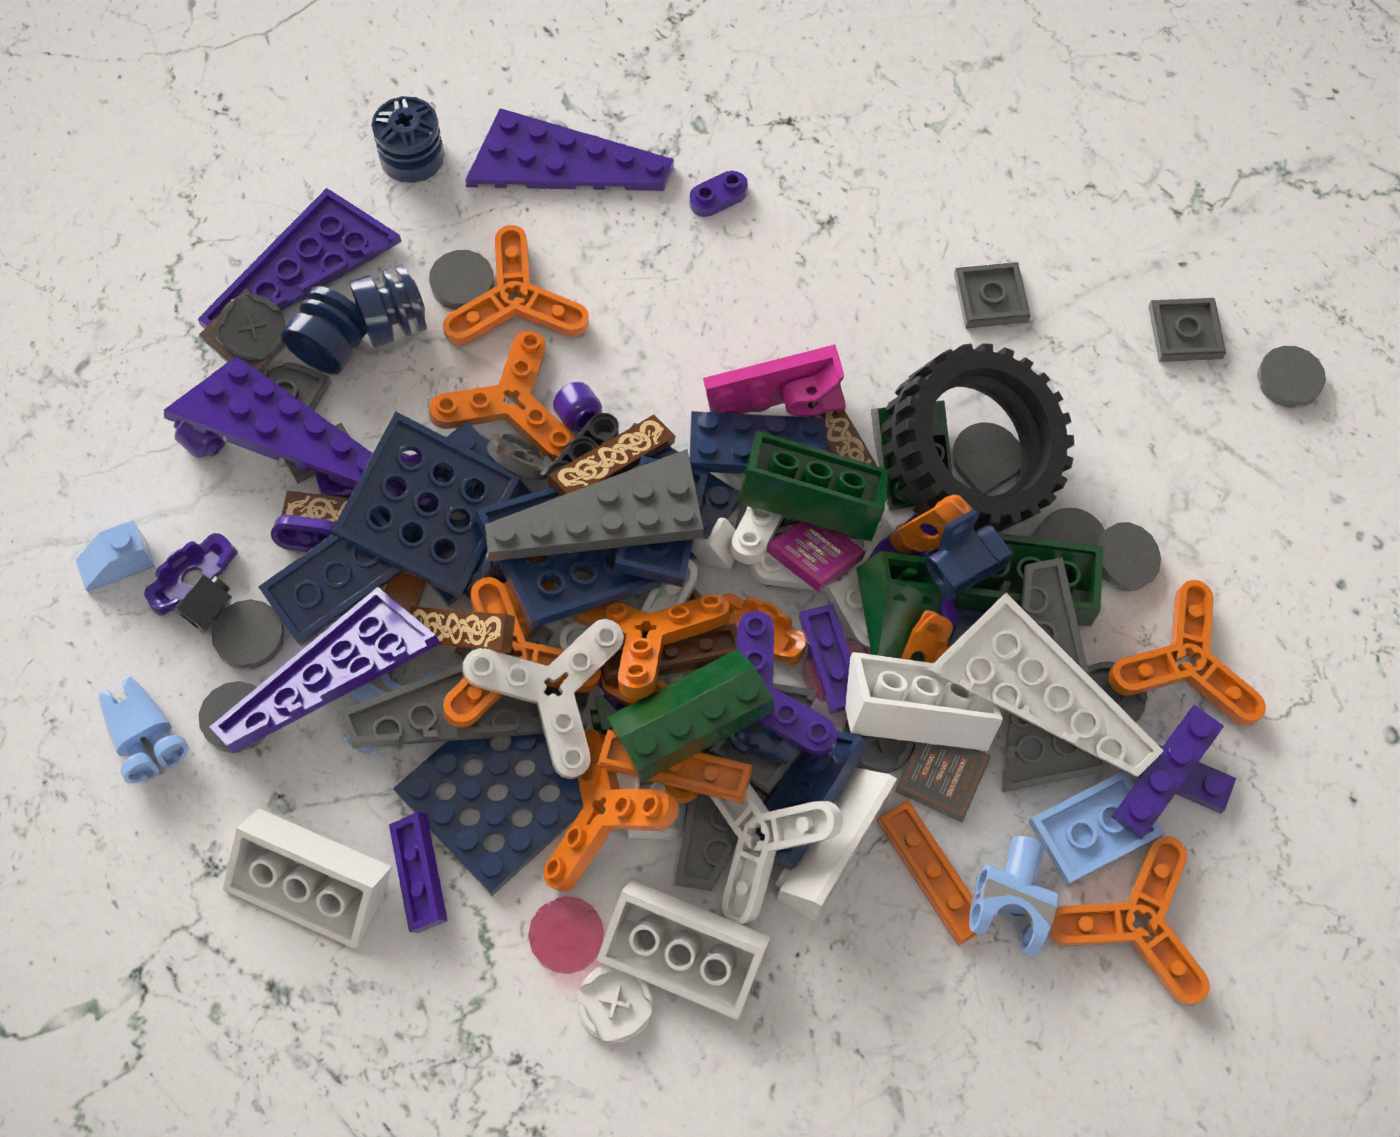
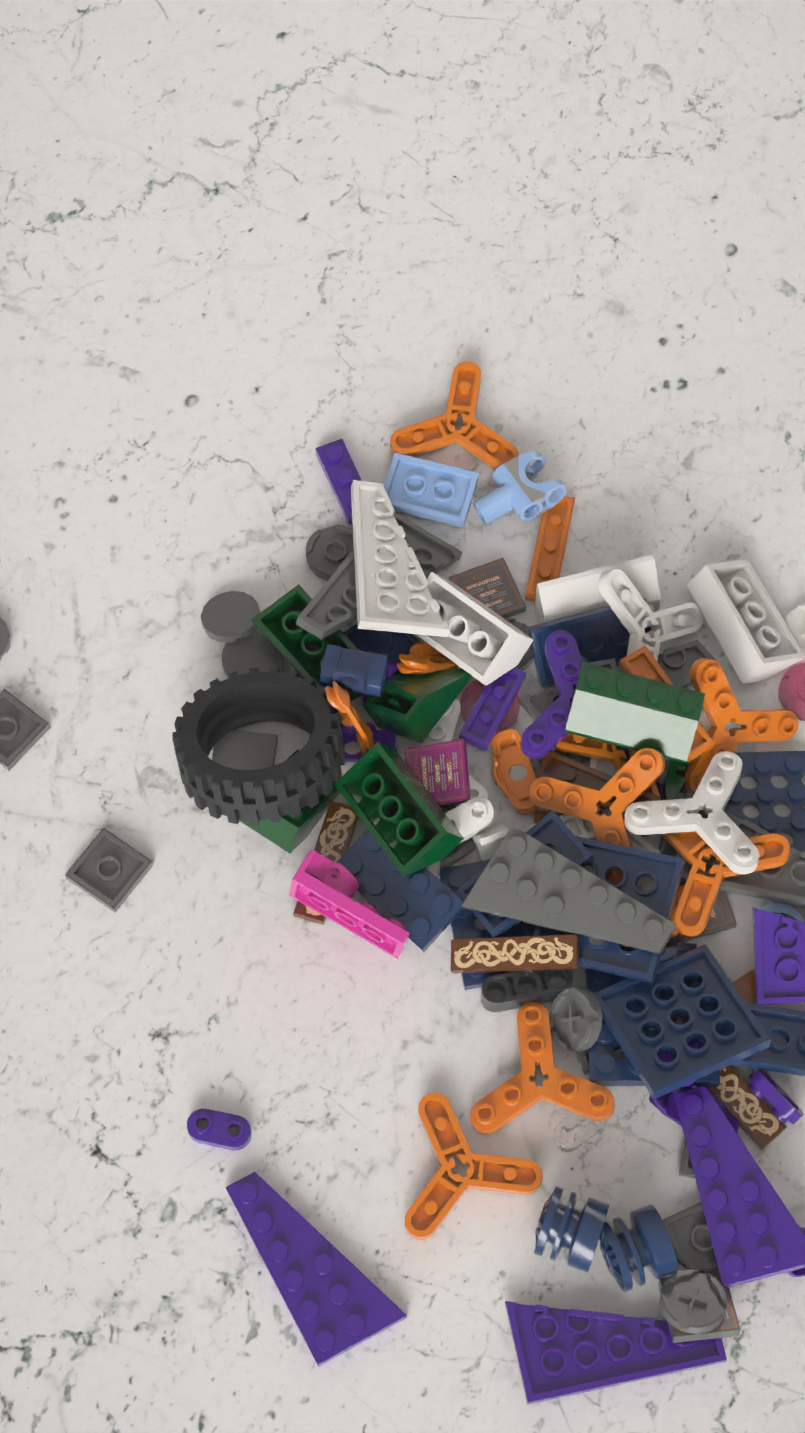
camera: 135 degrees left, 0 degrees up
(408, 139) = (436, 1403): dark blue wheel -> none
(460, 278) = (486, 1224): dark grey tile -> none
(468, 628) = (728, 910): reddish brown tile -> none
(576, 405) = (496, 1031): dark purple head -> none
(1167, 772) = (338, 478): dark purple plate -> none
(1207, 675) = (250, 537): orange piece -> none

